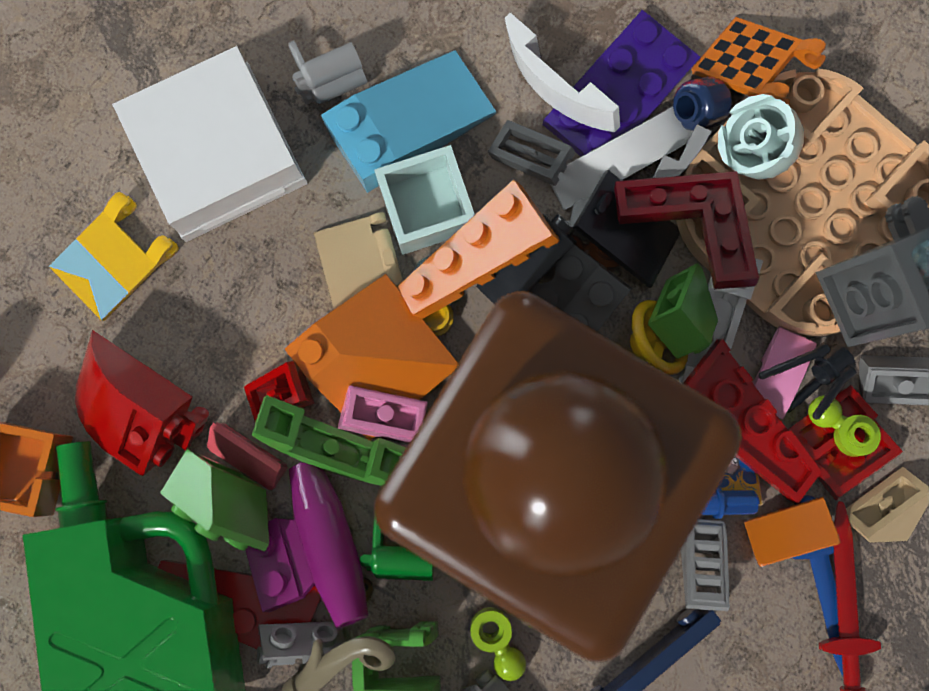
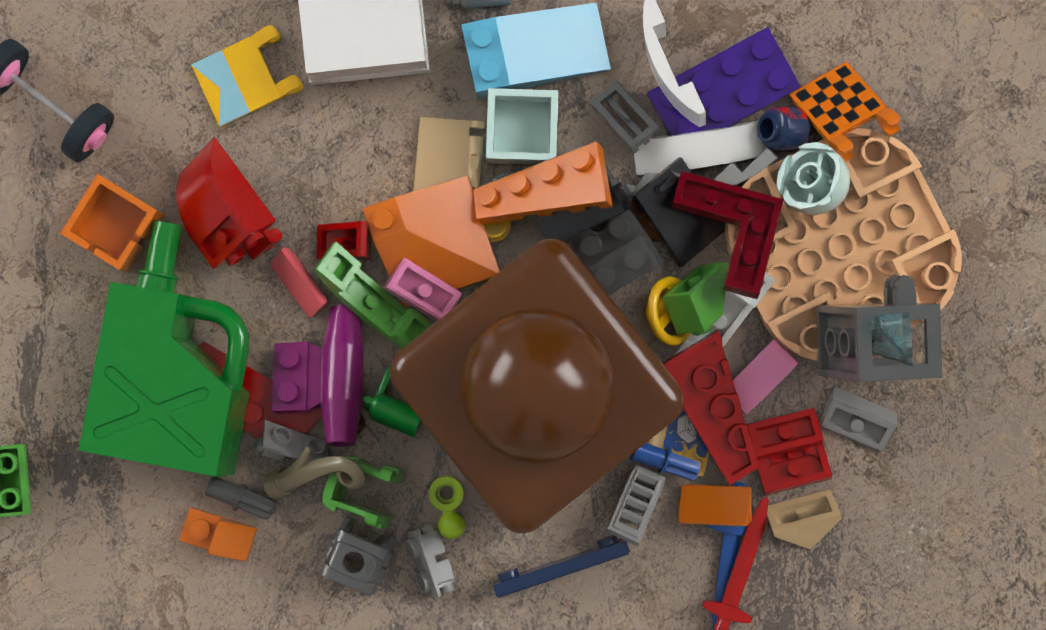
camera: 20 degrees right, 5 degrees up
(219, 501) = (270, 311): bright green slope -> none
(830, 366) = (801, 388): black plant -> none
(845, 429) = (781, 421): lime plate -> none

